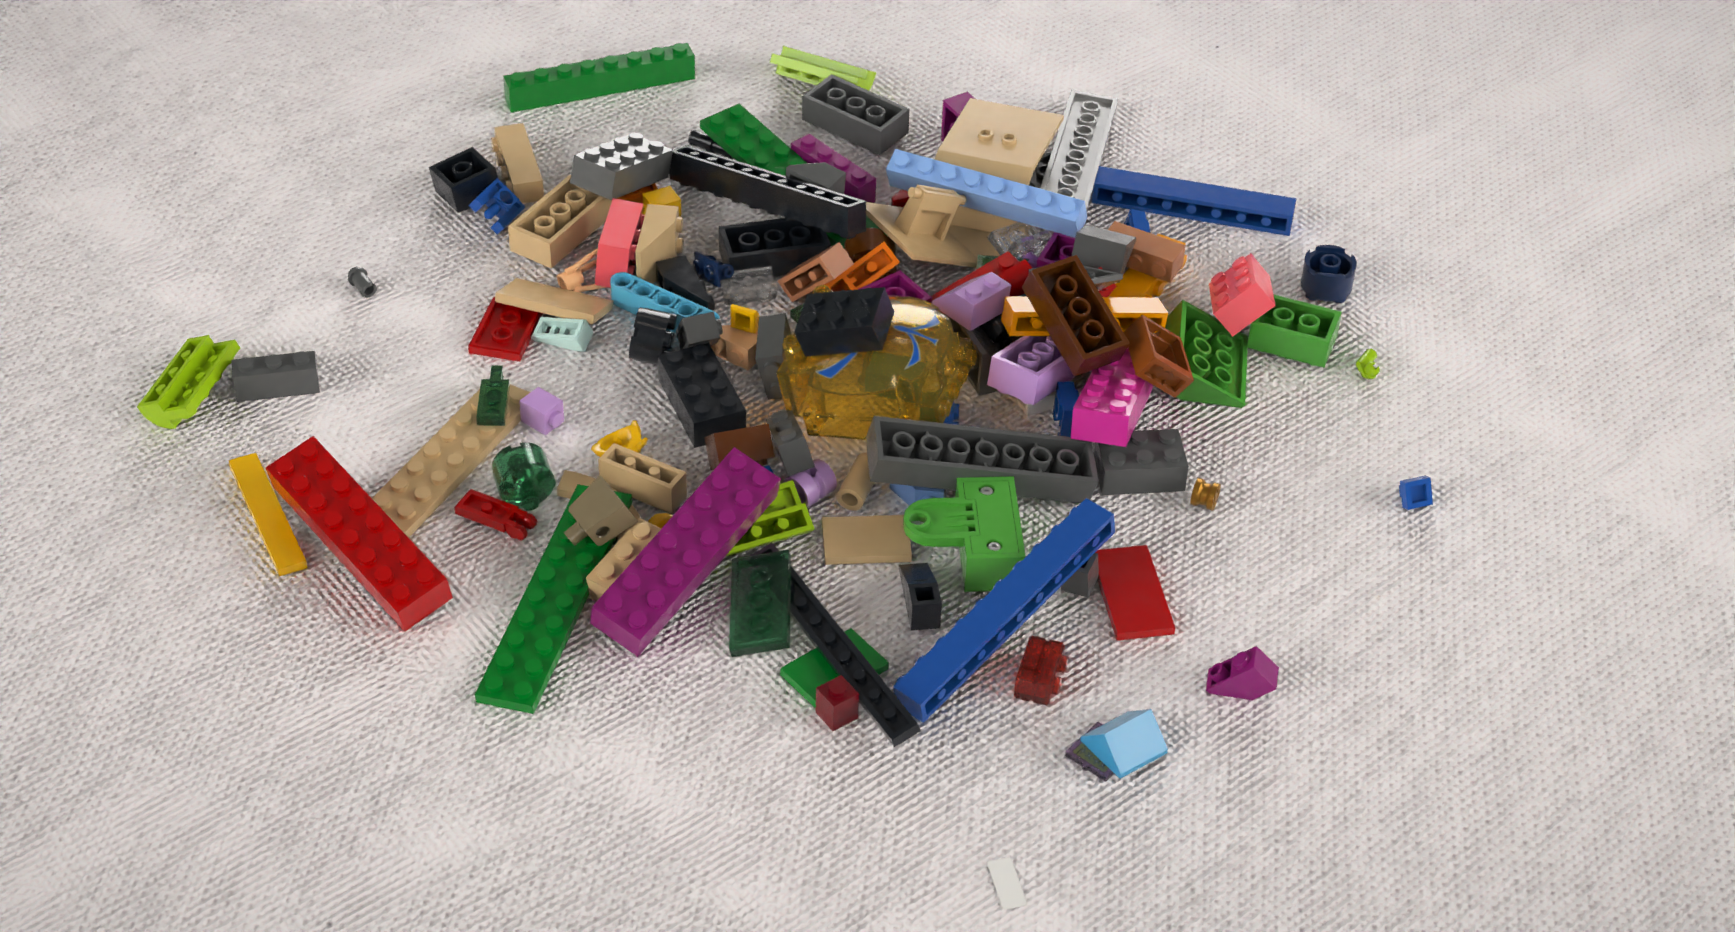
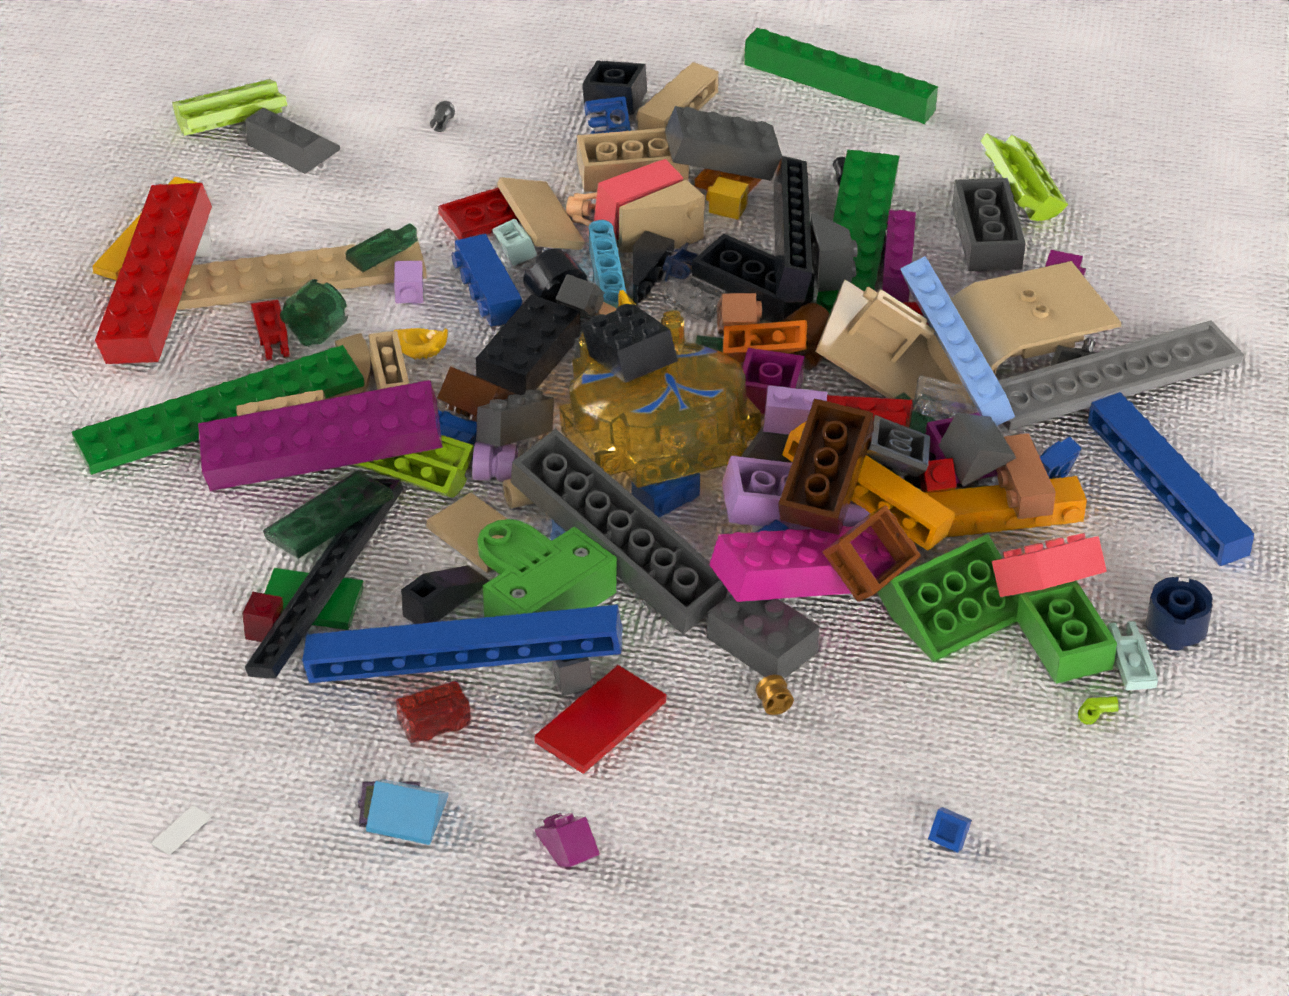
camera: 50 degrees right, 0 degrees up
(598, 514) = (301, 366): dark tan torso -> none
(599, 369) = (486, 279): none -> blue brick
(1351, 324) = (1133, 658): none -> light aqua hinge

